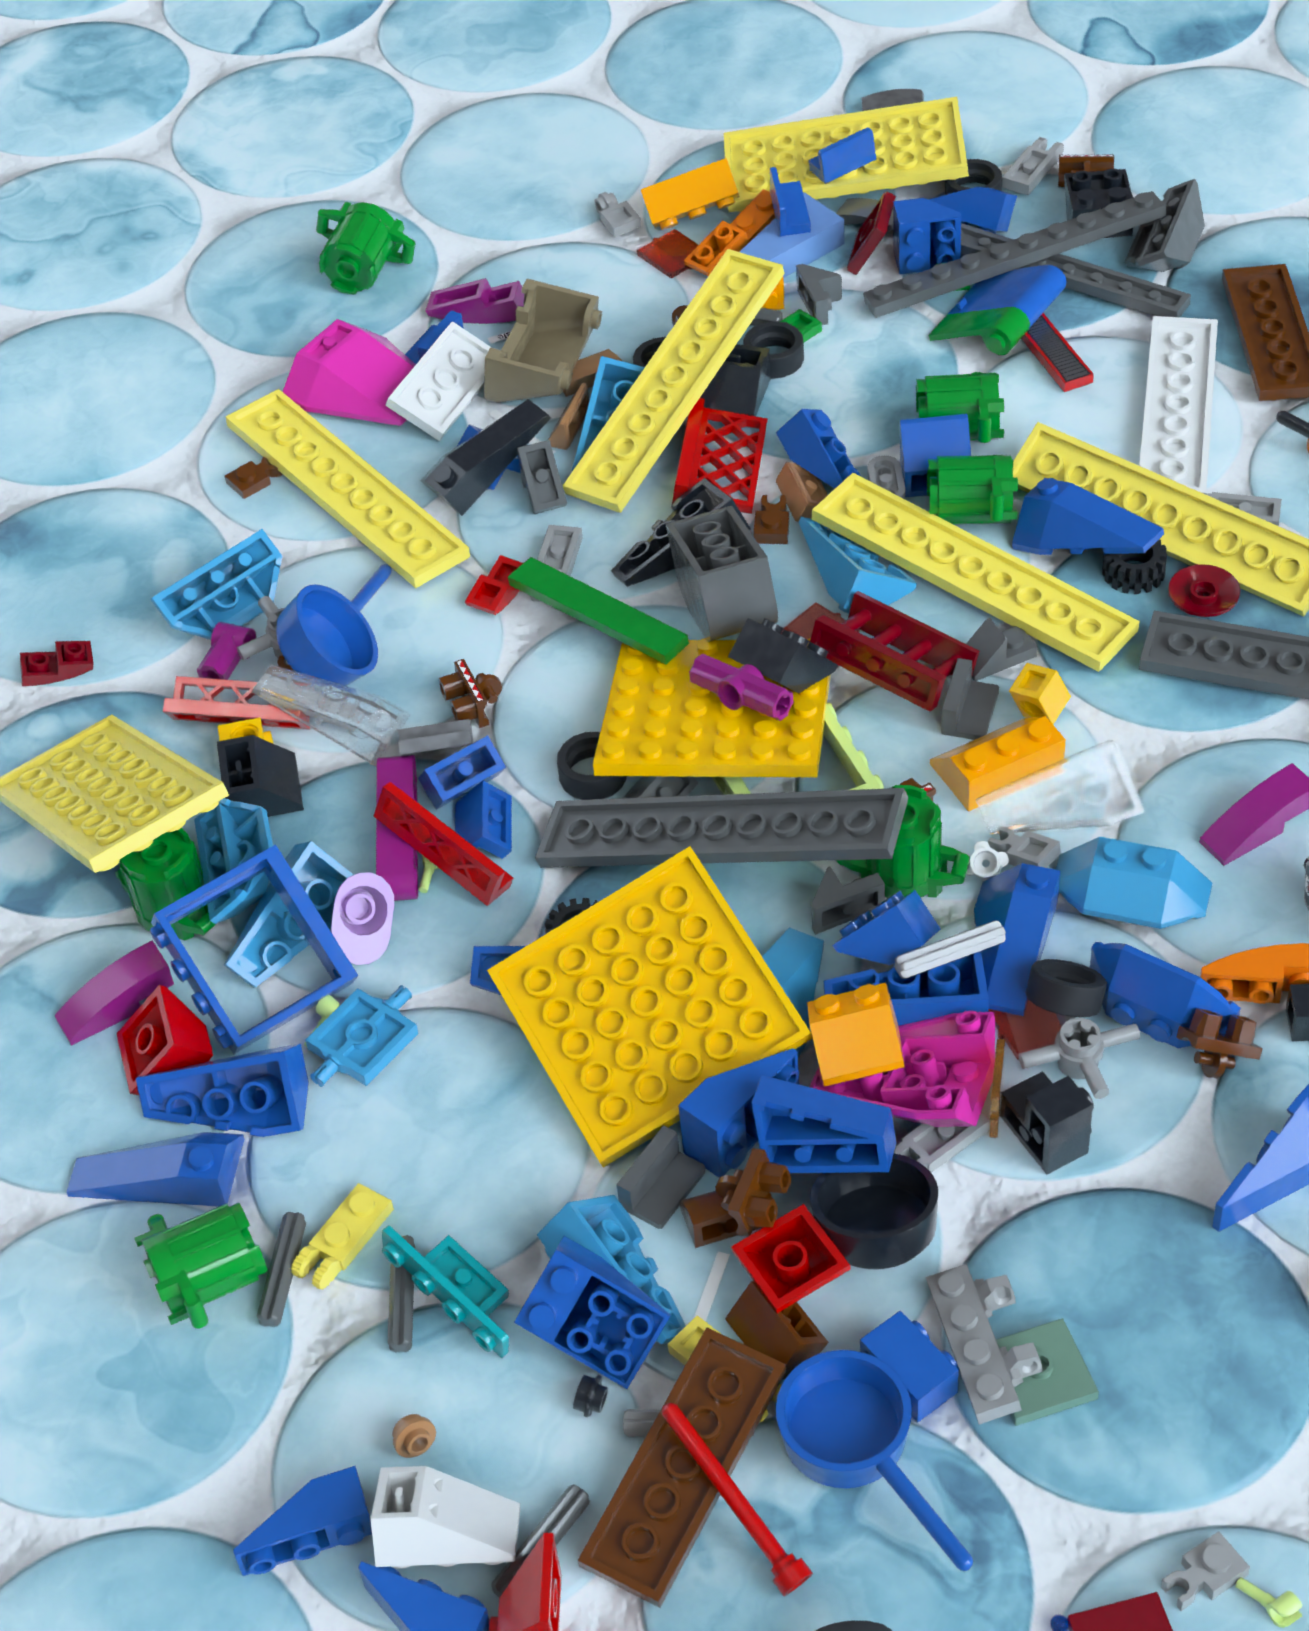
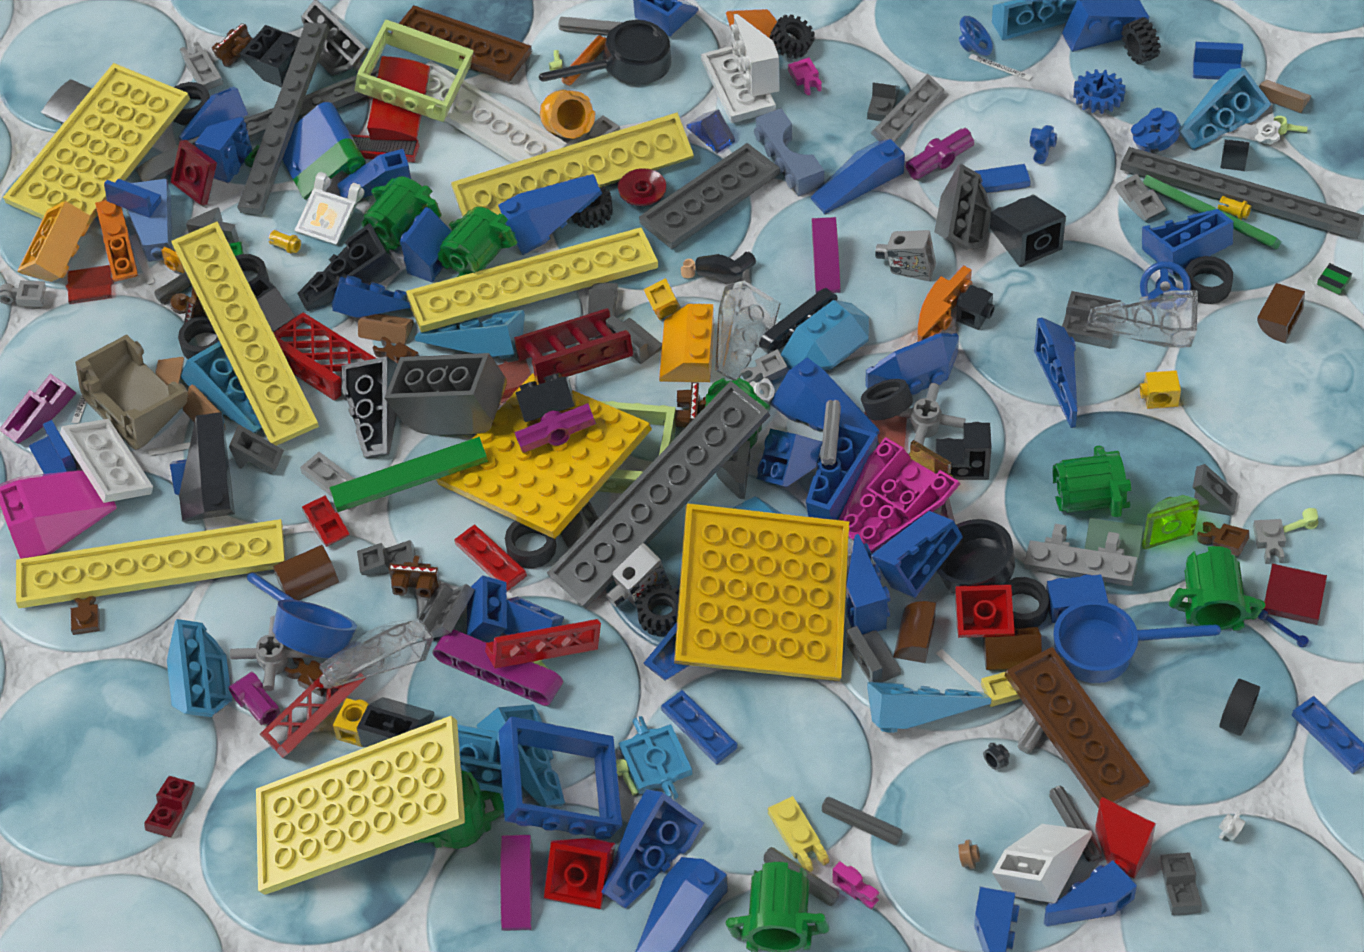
camera: 60 degrees left, 5 degrees up
(296, 1322) = (852, 883): none -> dark pink plate
(363, 917) = (561, 710): lavender piece -> none
(413, 606) = (306, 573): none -> reddish brown brick
(439, 1058) = (699, 727): none -> blue tile
(457, 1281) = (880, 785): teal bracket -> none
(483, 657) = (377, 558): none -> dark grey slope
(540, 763) = (490, 556): none -> red tile
(593, 1313) = (951, 724): blue slope -> none
(596, 873) = (636, 575): none -> light grey torso
(747, 1191) = (926, 596): reddish brown hips -> none
(787, 1570) = (1167, 714): red piece -> none
(844, 156) = (110, 147): panel -> none
(852, 357) = (284, 241): none -> yellow pin
(855, 1034) = (862, 502): light orange slope -> none
(858, 1278) = (1033, 588): none -> black tyre
(863, 424) = (362, 258): none -> black wedge
(888, 474) = (415, 277): light grey plate -> none
(921, 358) = (328, 214): none -> white flag
(1019, 370) = (377, 173): none -> blue slope
(1033, 1530) = (1215, 591): none -> green container
(1075, 829) = (781, 332): none -> black beam
(1111, 1286) = (1092, 483): none -> green container
(1121, 1412) = (1170, 520): none -> clear neon green slope
(1127, 322) = (391, 121): none -> red slope
(1144, 726) = (719, 266): none -> black arm
(1155, 1510) = (1226, 536): none -> reddish brown plate
(1160, 256) = (422, 45): none -> yellowish green window
(1204, 1036) = (968, 355): reddish brown hips -> none
(1223, 1450) = (1213, 492): none -> dark grey slope
(1236, 461) = (567, 113): none -> light orange tile

